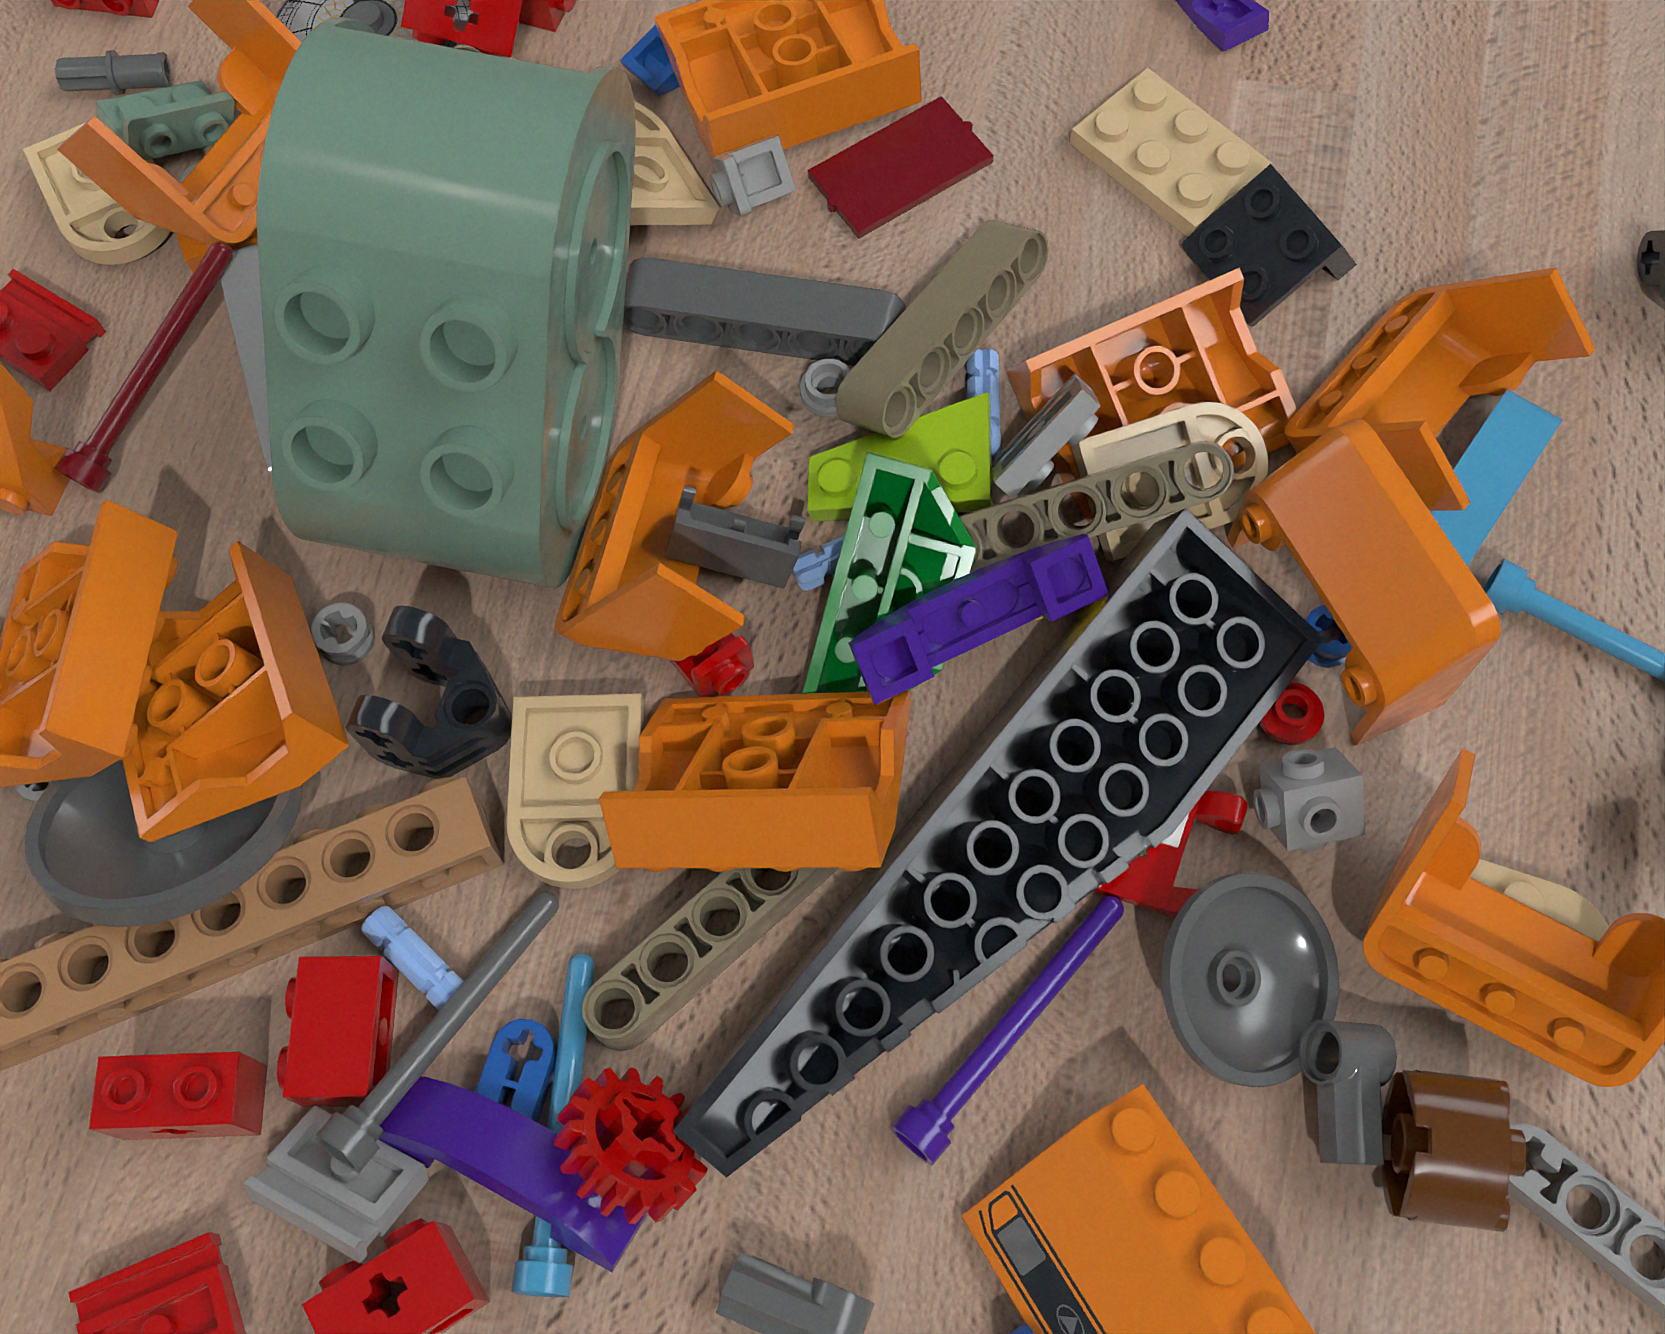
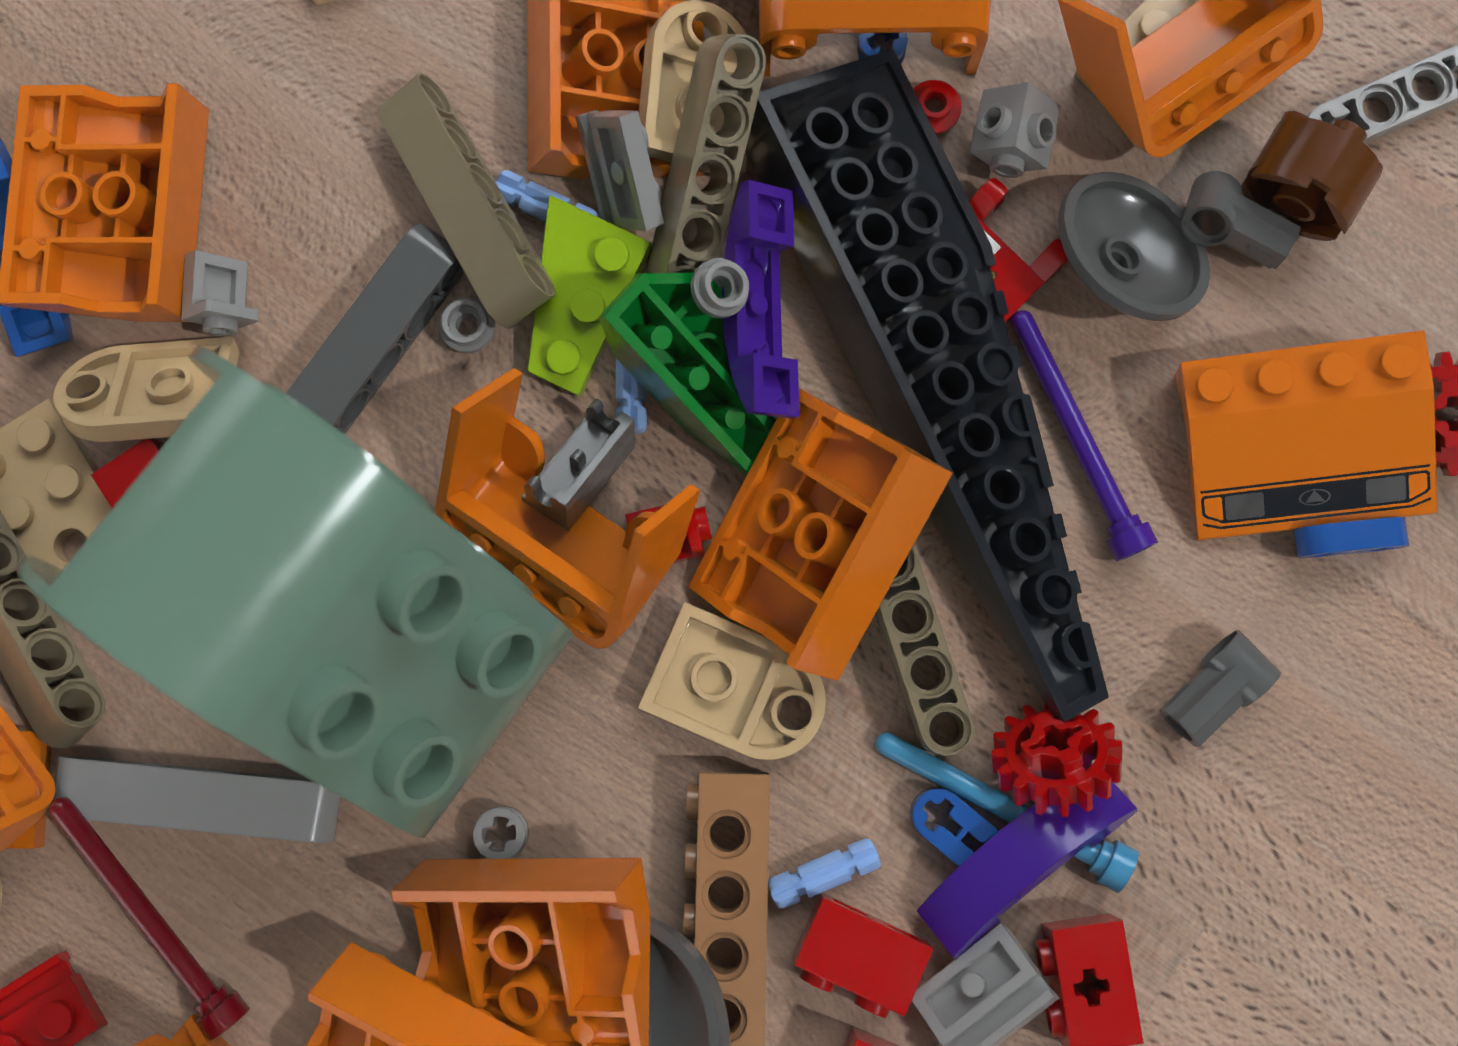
camera: 65 degrees left, 15 degrees up
(354, 1134) = (959, 965): dark grey piece -> none
(434, 655) = (576, 751): black piece -> none
(900, 166) = (265, 160): dark red piece -> none
(982, 554) = (732, 279): none -> light grey plate

